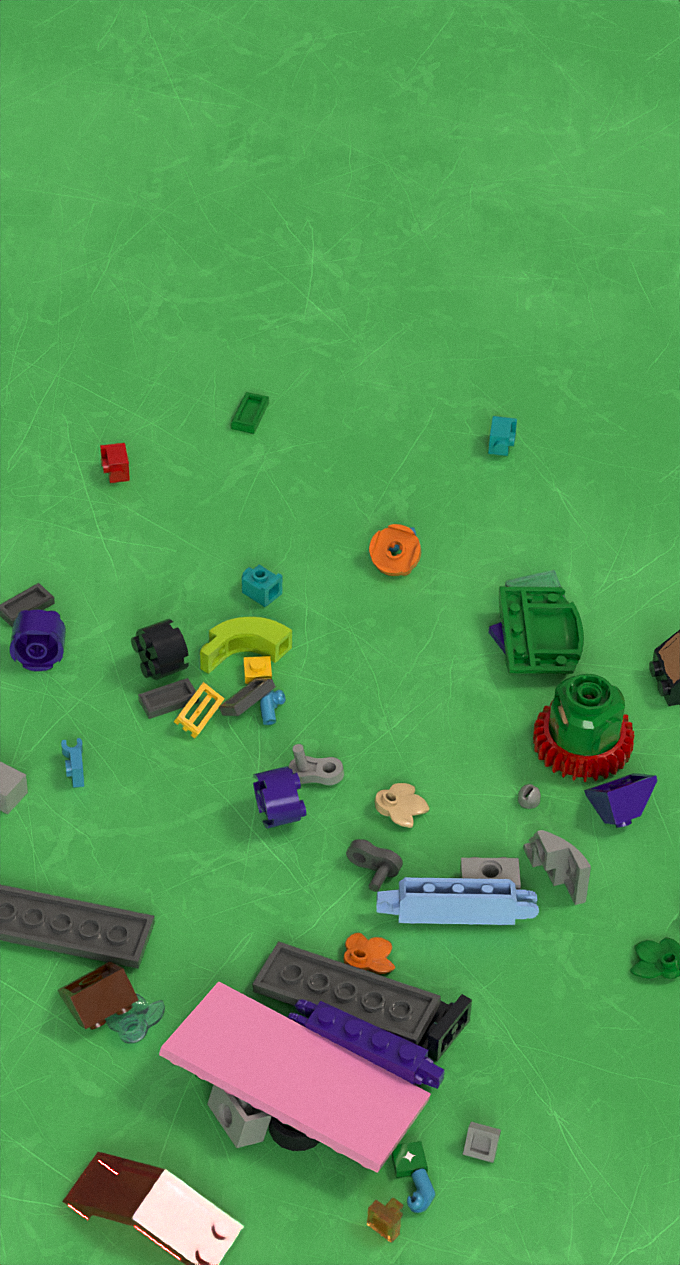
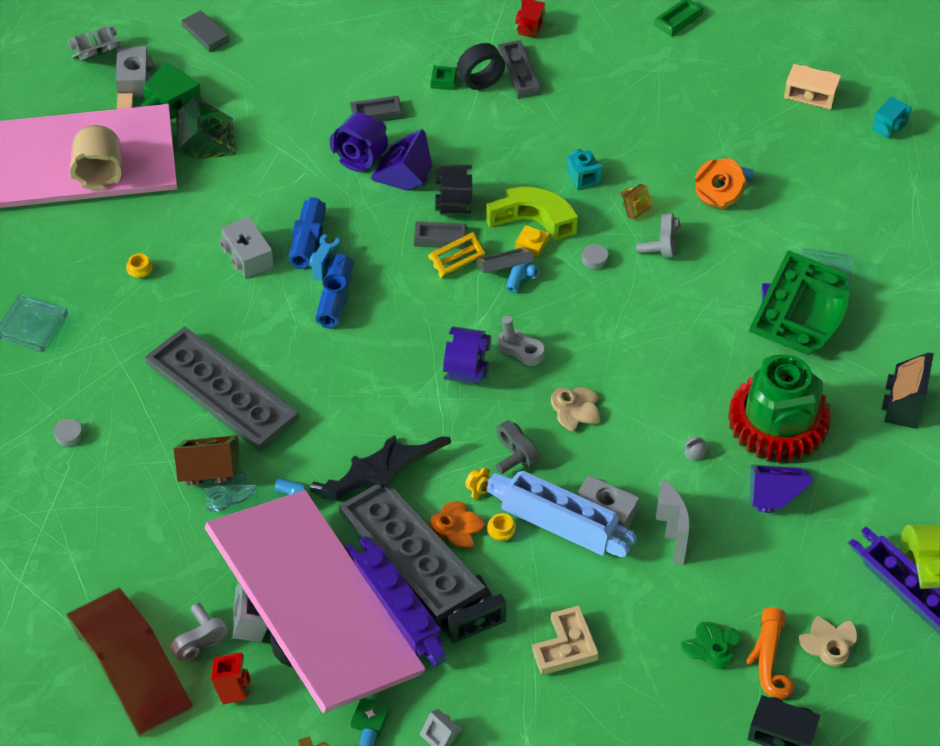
camera: 30 degrees right, 5 degrees up
(43, 746) = (307, 232): none -> blue piece
(69, 549) = (444, 77): none -> green tile
(92, 642) = (405, 163): none -> dark purple slope
(105, 524) = (472, 58): none -> black tyre
(108, 789) = (334, 291): none -> blue piece
(135, 515) = (519, 69): none -> dark grey tile
(195, 989) = (288, 487): none -> dark azure arm
(213, 1152) = (191, 643): none -> light grey piece
(262, 934) = (378, 468): none -> black animal
(266, 1182) = (230, 678): none -> red brick
(324, 662) = (594, 256): none -> light grey tile
(329, 596) = (636, 201): none -> clear orange tile
(364, 907) = (478, 482): none -> yellow plate
(377, 608) = (667, 245): none -> light grey piece
(409, 939) = (501, 527): none -> yellow plate
(415, 432) = (812, 86): none -> light nougat brick
(542, 1014) = (571, 647): none -> tan plate

